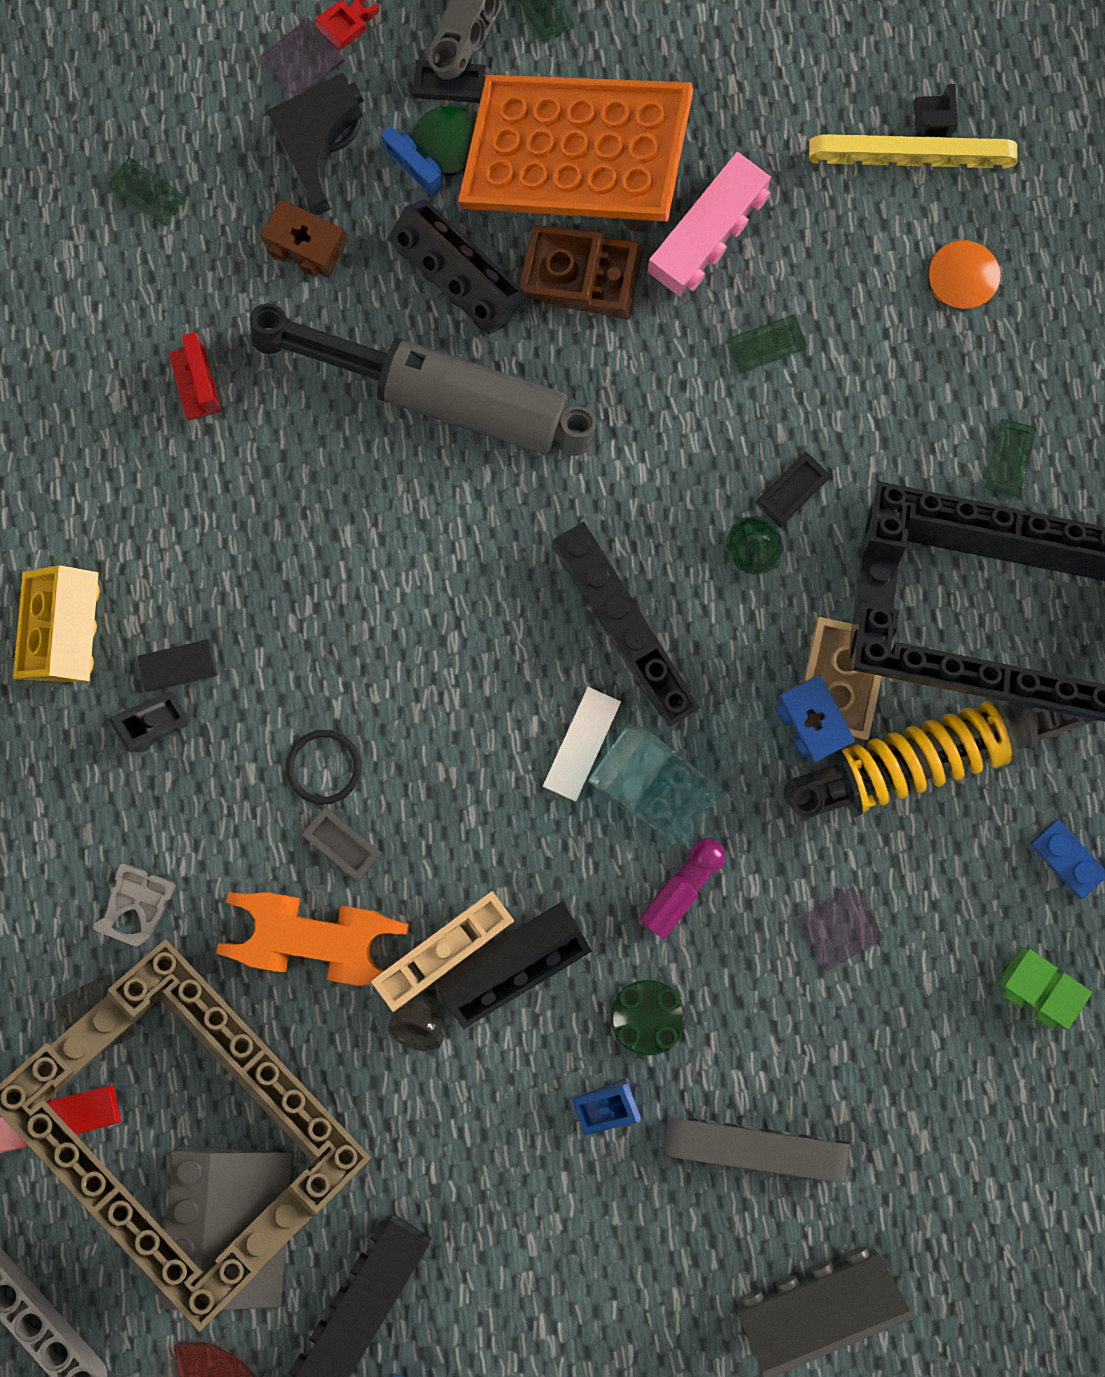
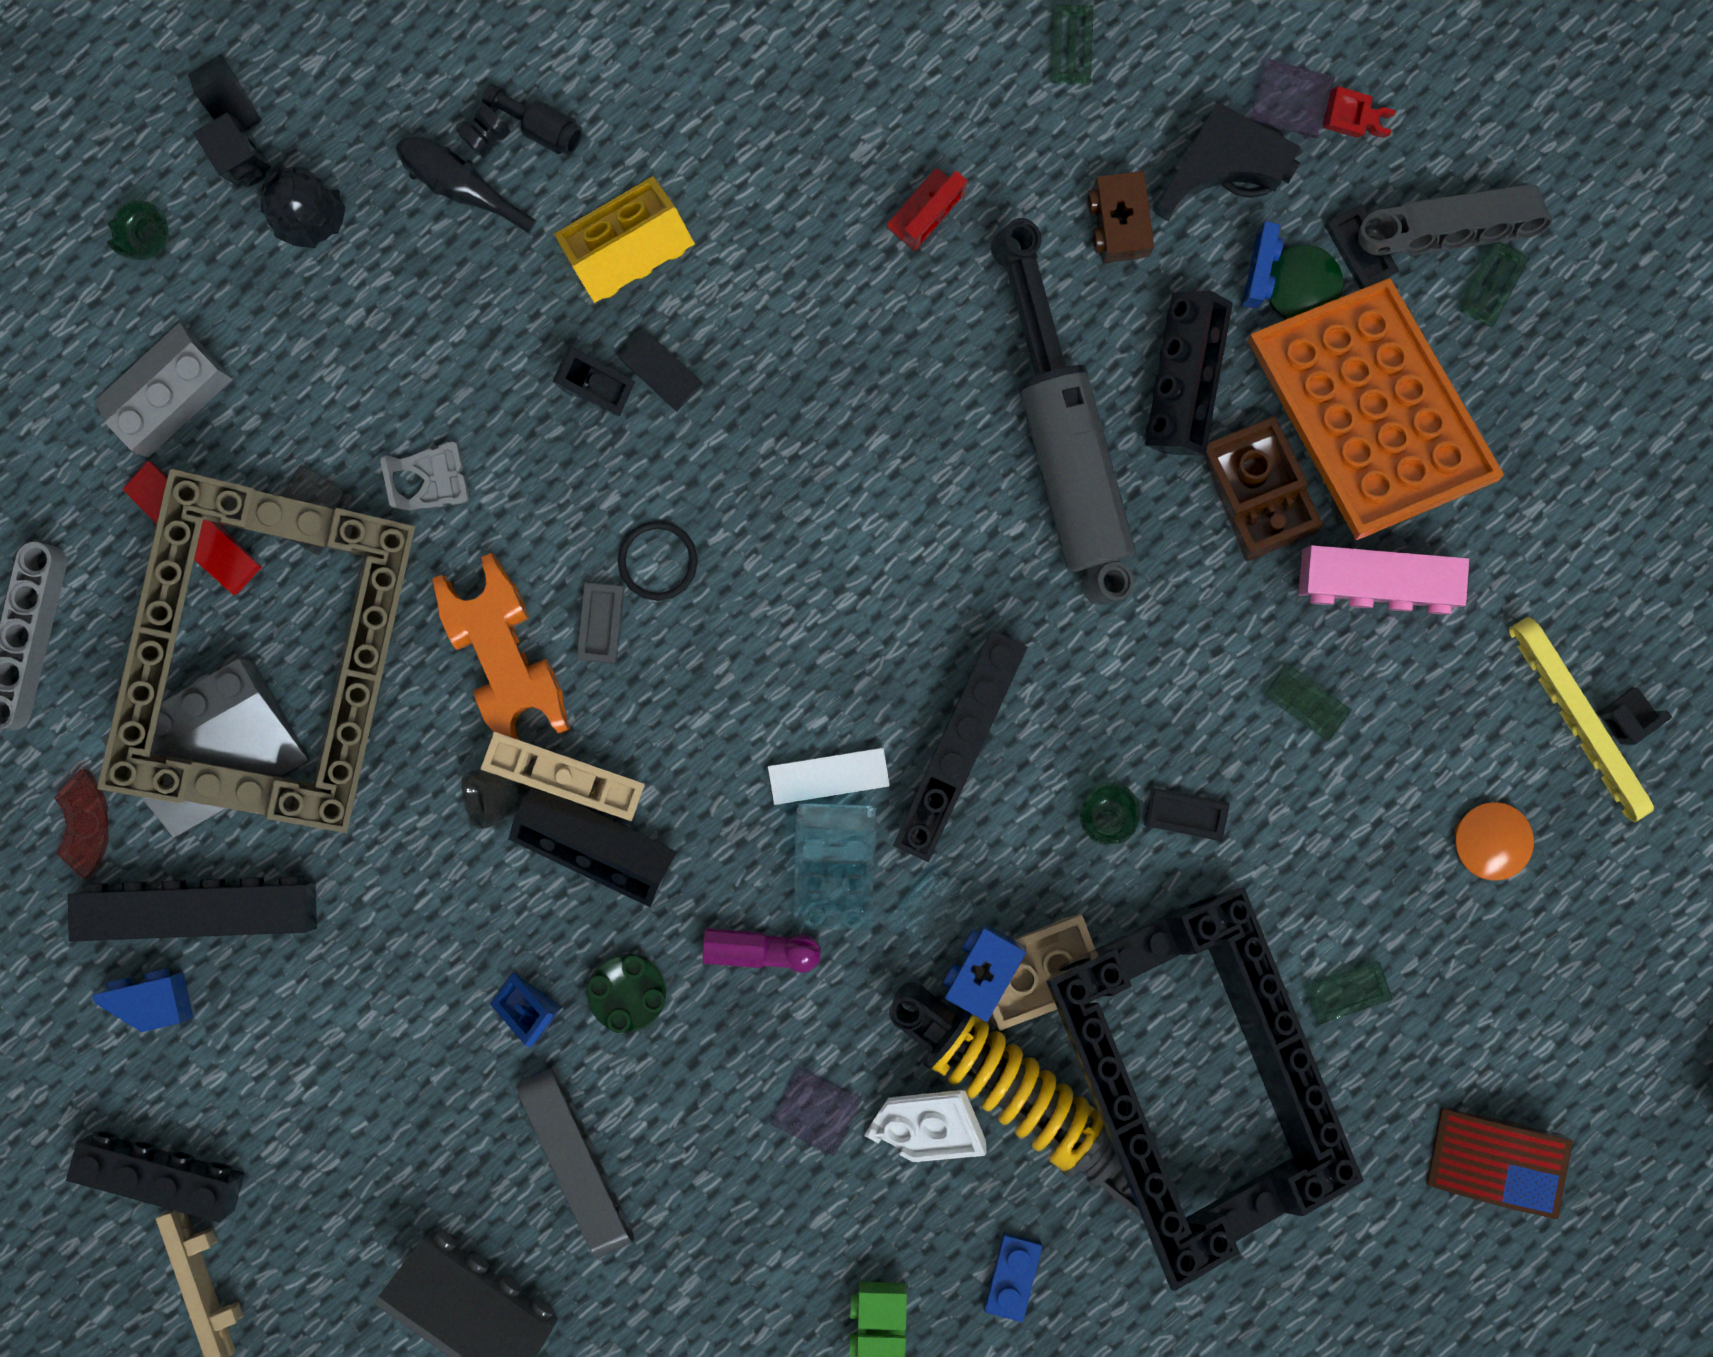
camera: 60 degrees right, 5 degrees up
(908, 844) = (930, 1126): none -> white tile

